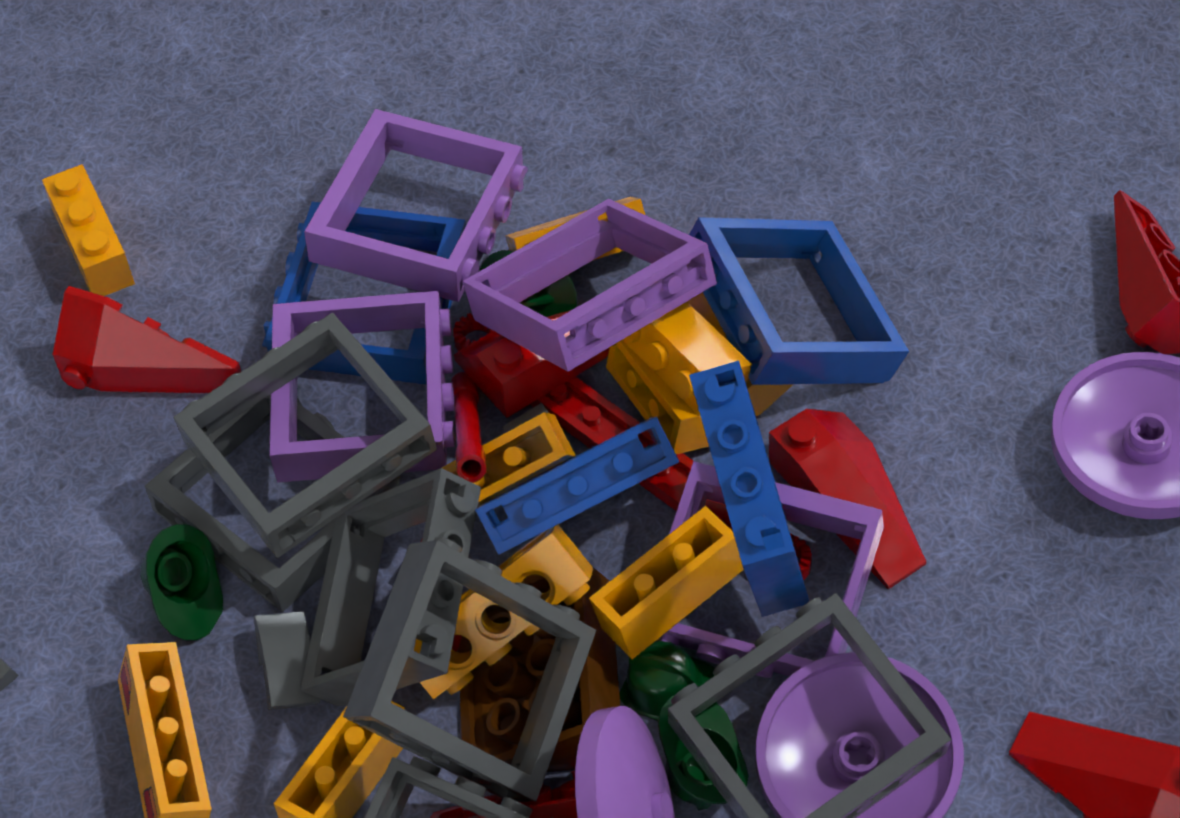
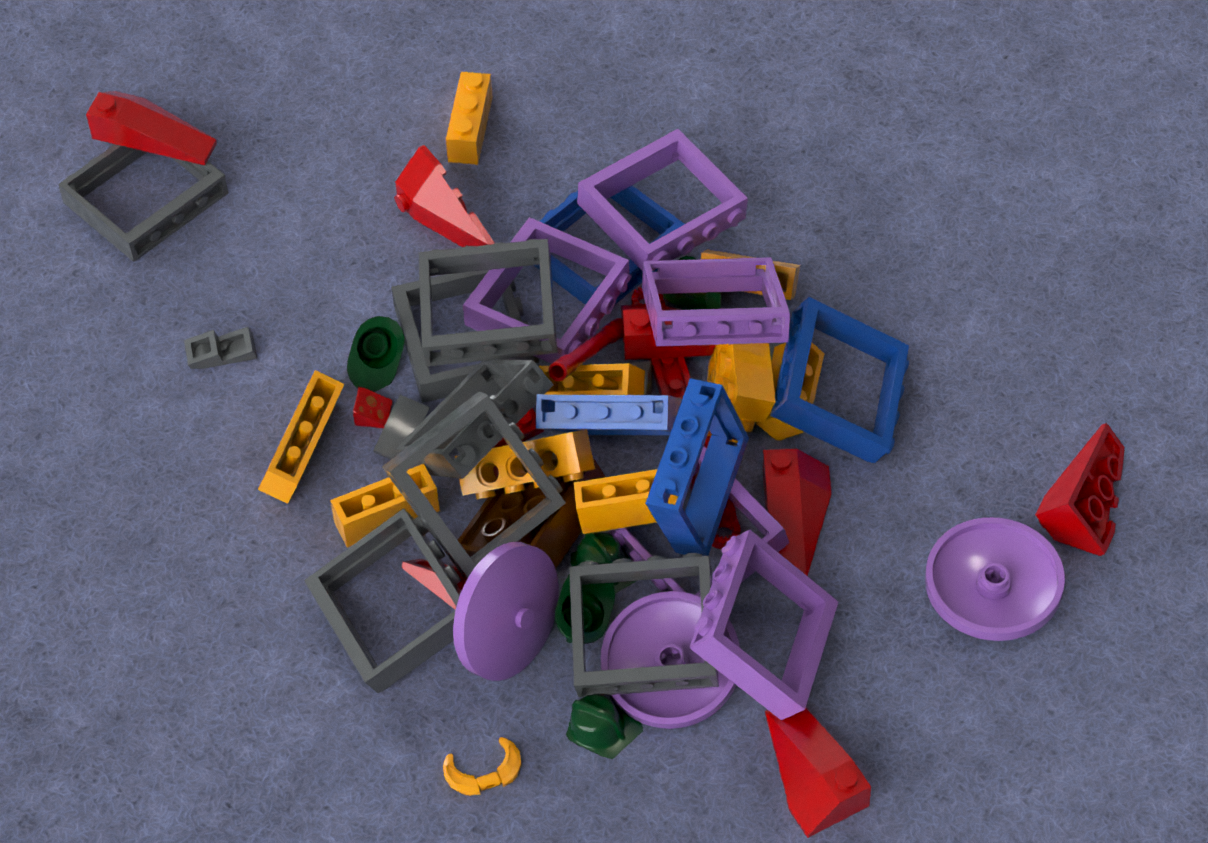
camera: 30 degrees right, 0 degrees up
(226, 656) = (371, 409): none -> red slope
(1029, 704) = (778, 696): none -> medium lavender window

